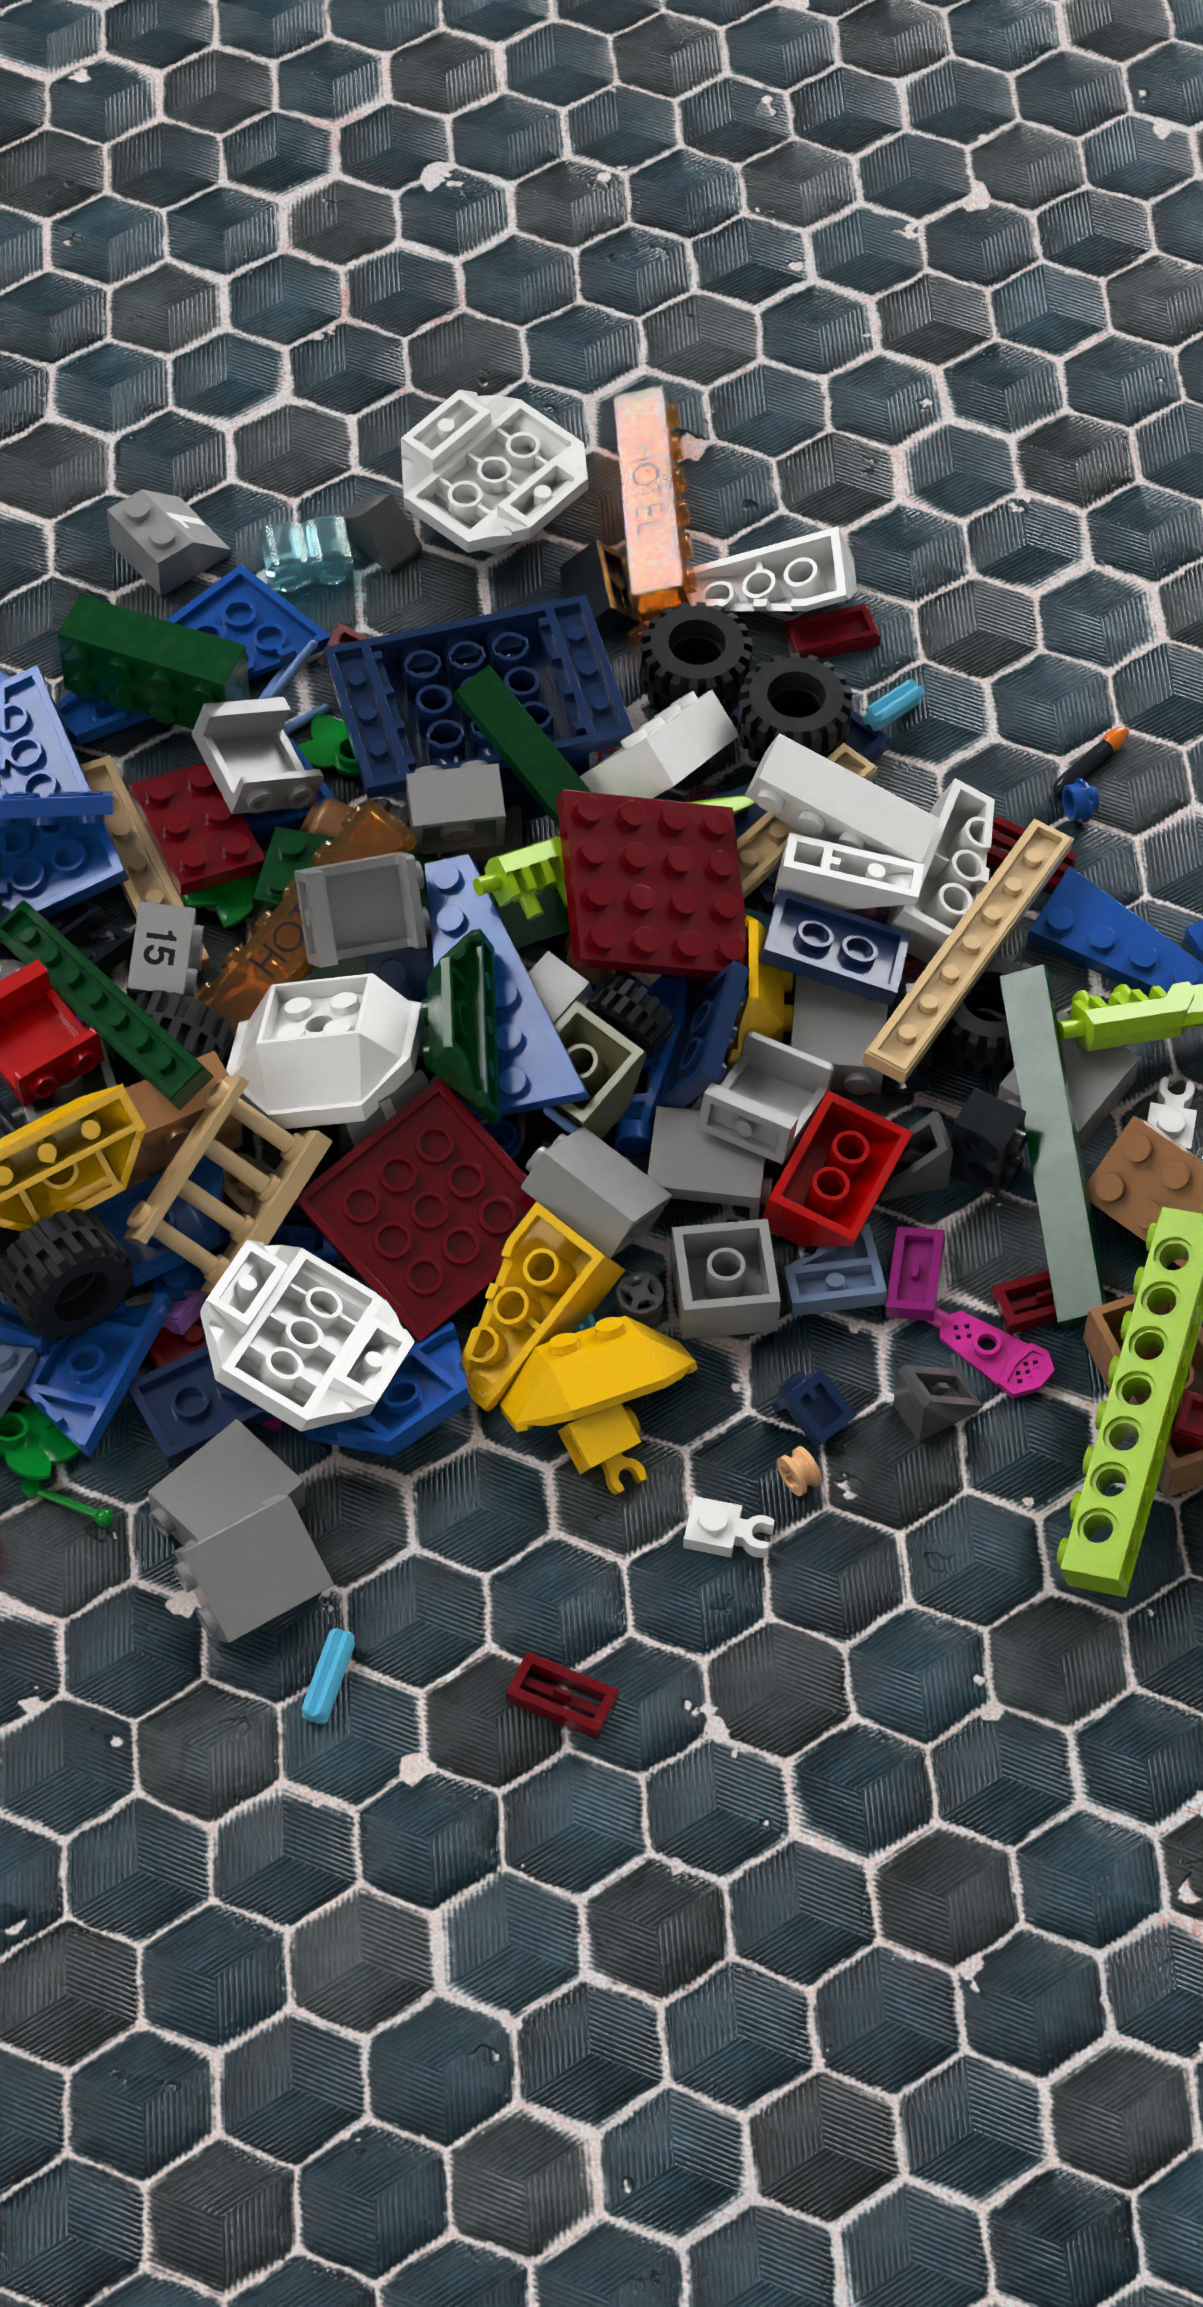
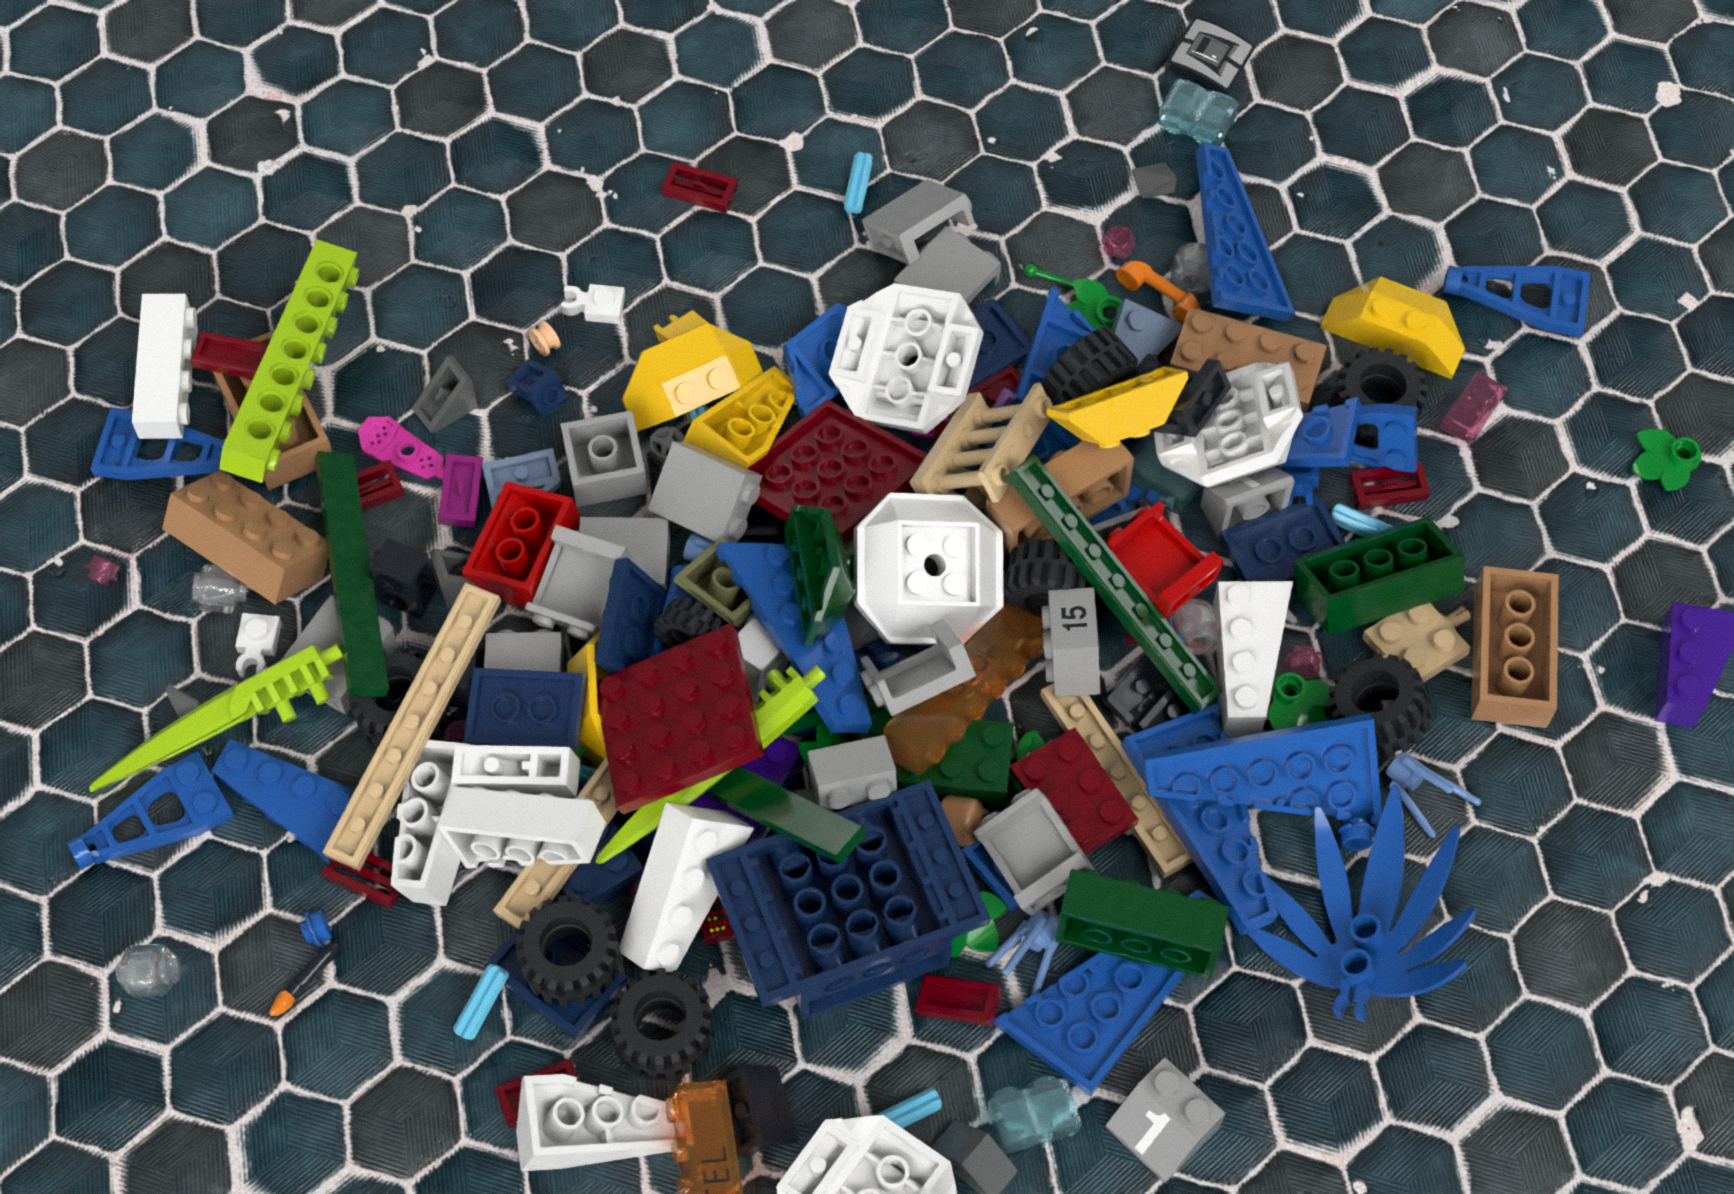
camera: 175 degrees right, 5 degrees up
(444, 575) = (914, 1108): none -> medium azure axle

